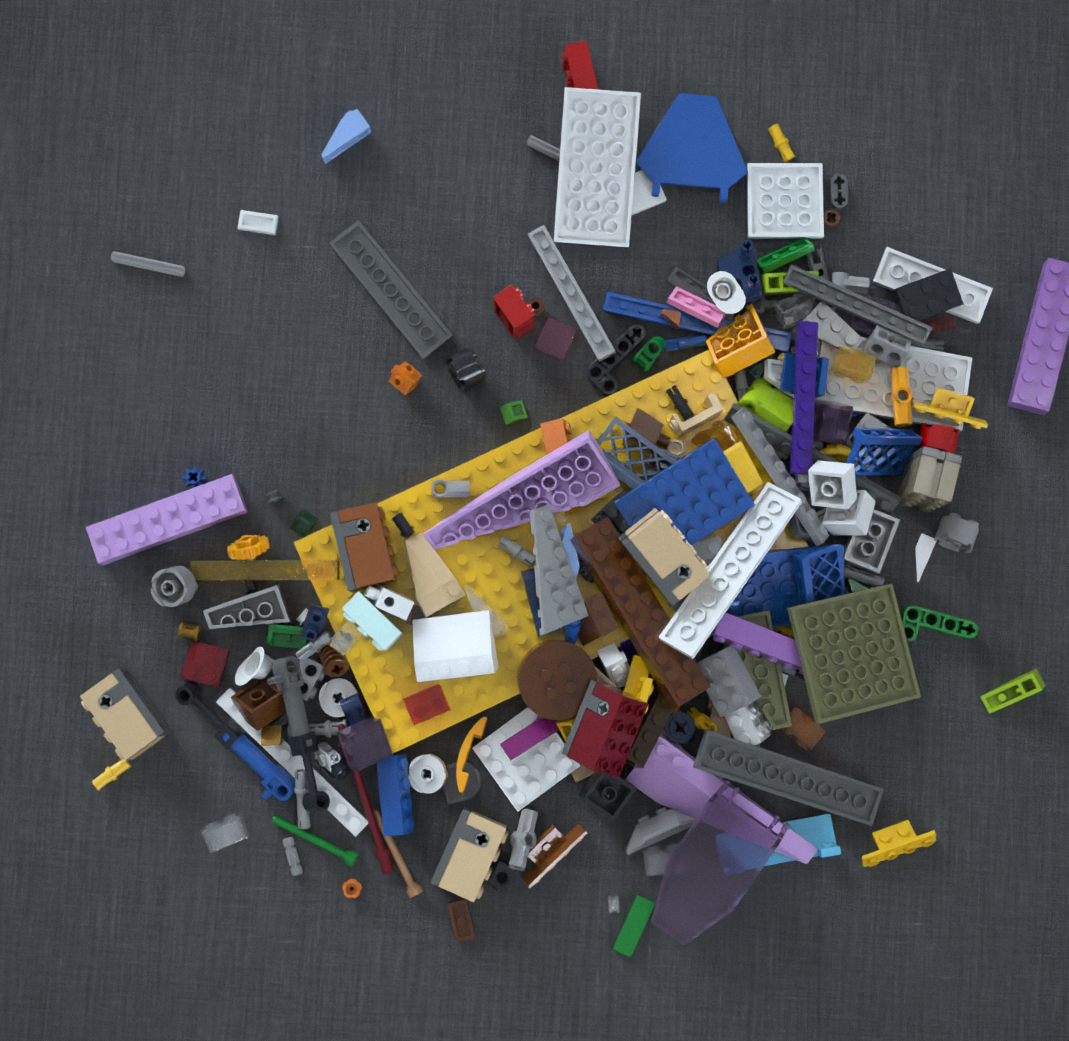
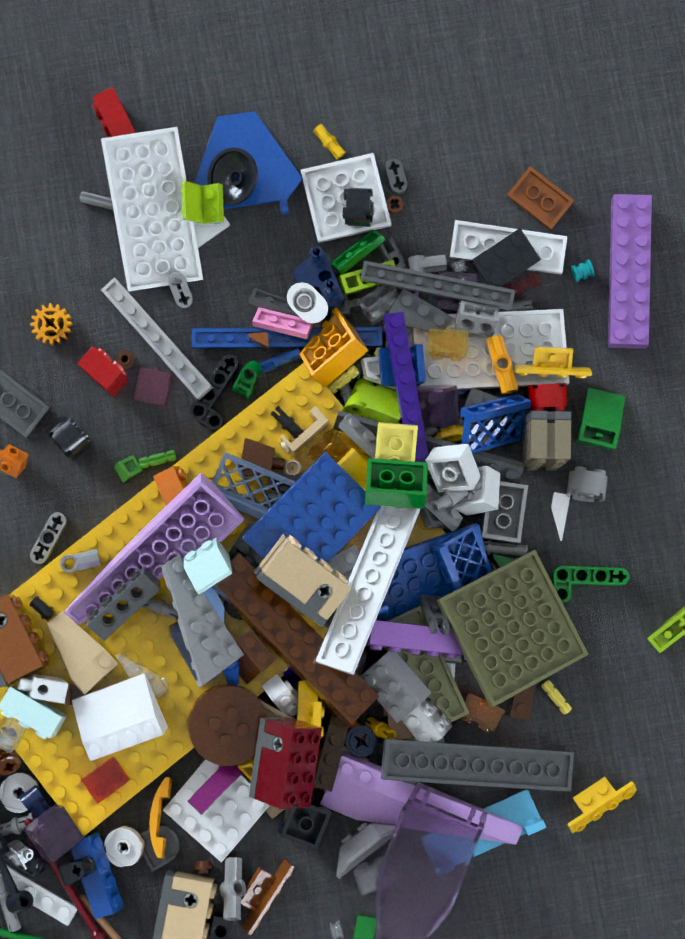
camera: 15 degrees left, 0 degrees up
(378, 784) = (76, 870): none -> black piece
(435, 453) = (36, 548): none -> light grey beam
(460, 557) = (104, 626): none -> dark grey brick
(466, 260) = (45, 330): none -> light orange gear
(498, 812) = (203, 867): none -> reddish brown plate
(543, 410) = (157, 459): none -> bright green axle
(575, 520) = (207, 565): none -> light aqua slope
(609, 251) = (184, 287): none -> light grey beam
(647, 173) = (202, 203): none -> lime bracket
(674, 149) = (227, 169): none -> black dish
(743, 375) = (343, 379): none -> light yellow axle
(776, 485) = (396, 483): none -> green slope
(781, 456) = (396, 441): none -> light yellow plate
(781, 621) = (434, 614): none -> dark grey hinge
(796, 211) = (358, 207): none -> black brick
(820, 514) = (448, 500): none -> light grey pin
(844, 729) = (522, 704): none -> reddish brown plate
(878, 731) = (556, 697): none -> light yellow axle
(880, 292) = (459, 266): none -> clear bush
(974, 245) = (540, 198): none -> dark orange plate
(984, 474) = (600, 420): none -> green slope
(1000, 325) = (582, 271): none -> teal bush

